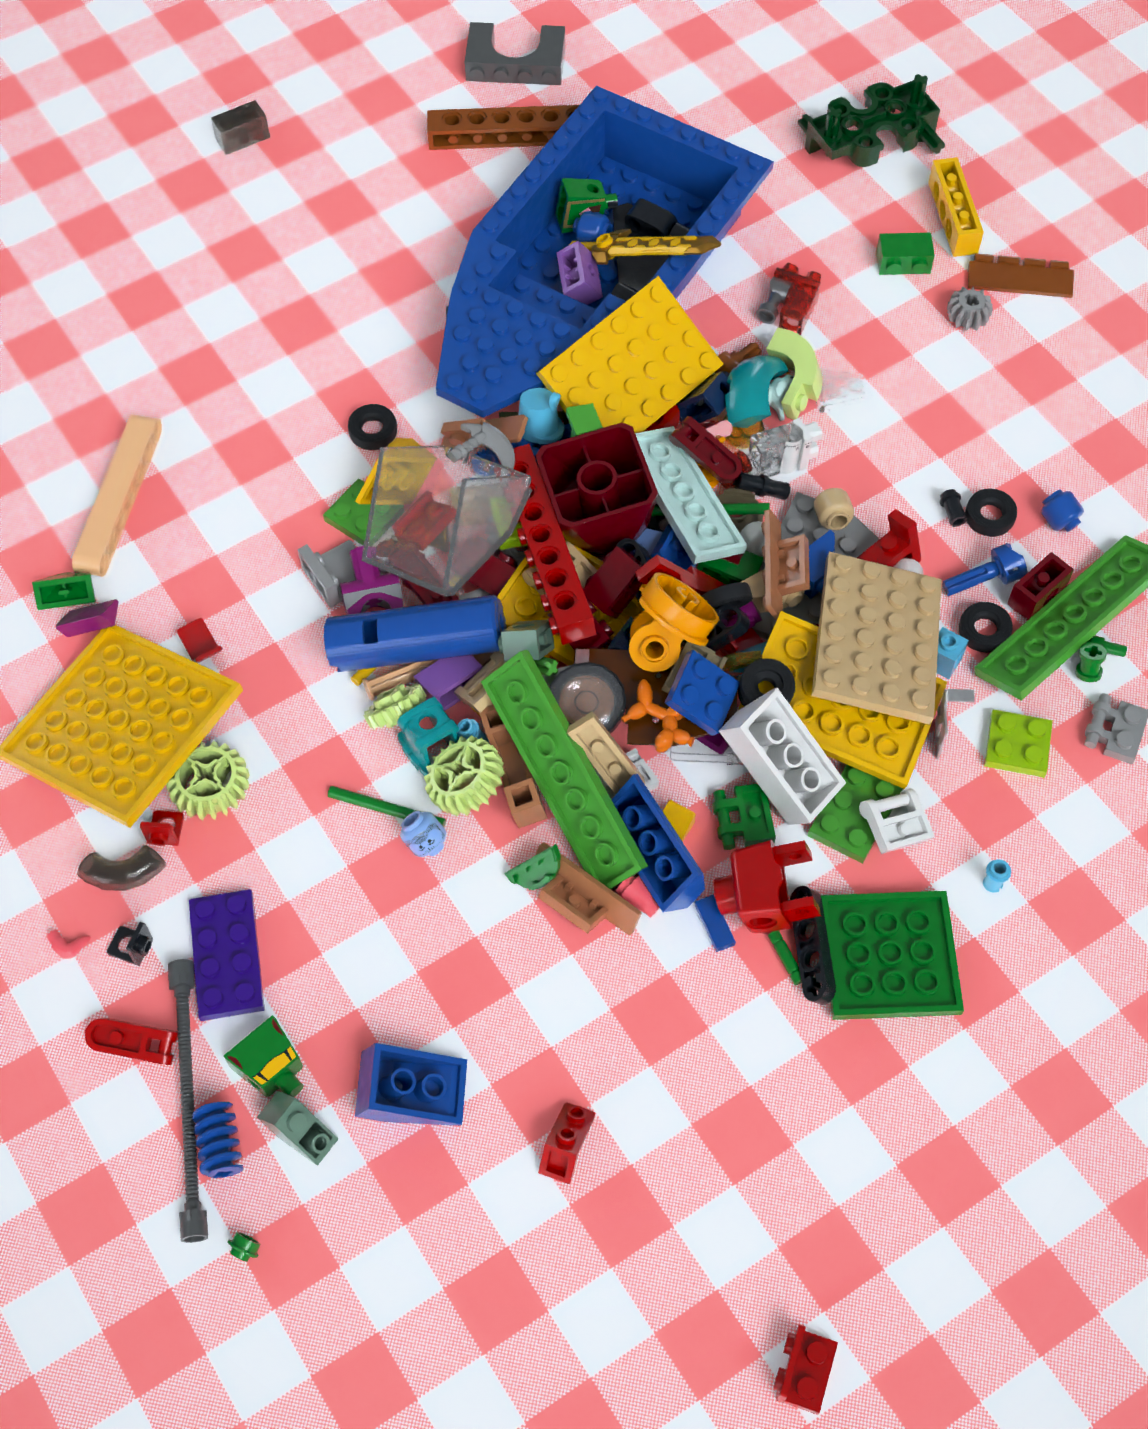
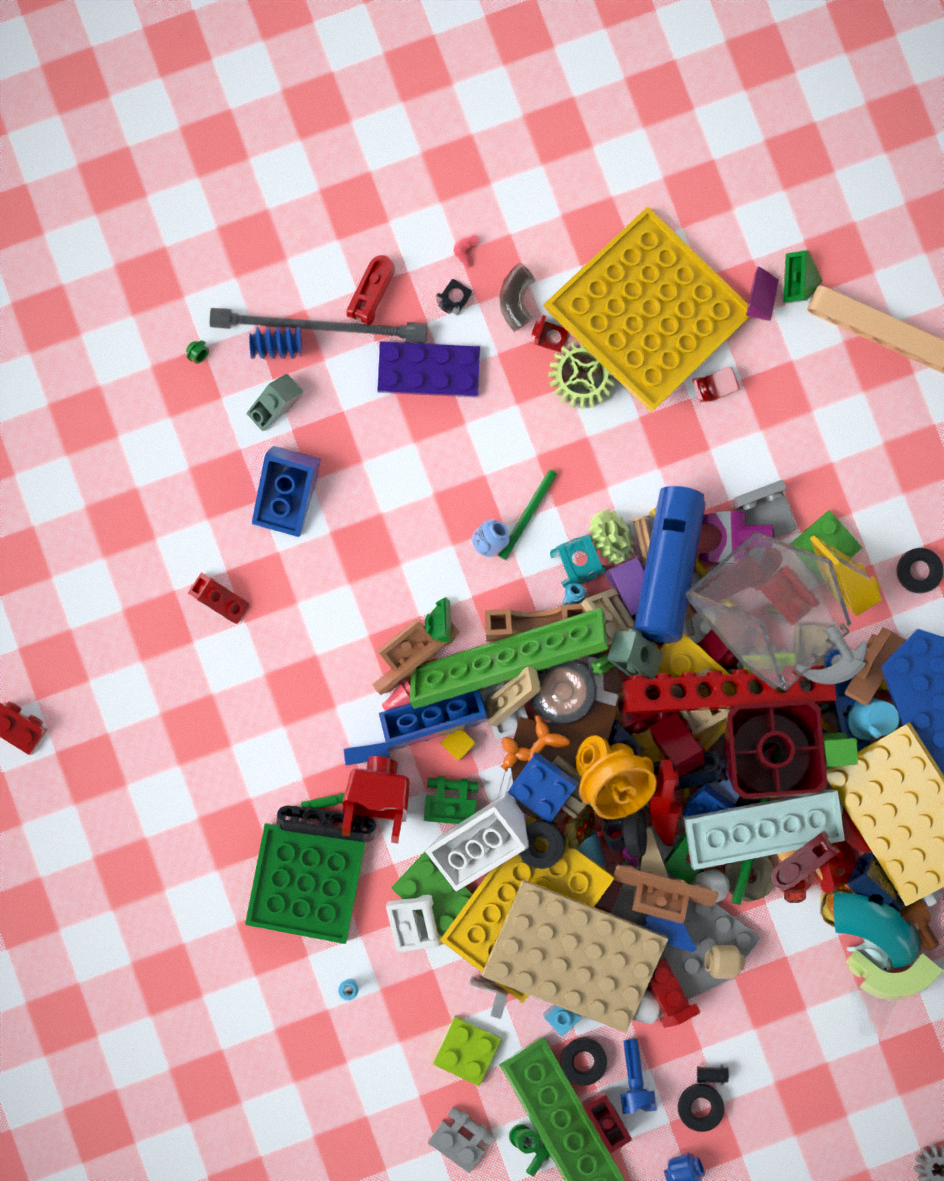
camera: 100 degrees right, 25 degrees up
(267, 1060) = (331, 388): green torso -> none
(460, 771) = (526, 568): yellowish green gear -> none
(762, 485) = (769, 908): black pin -> none
(784, 448) = (801, 936): hips -> none

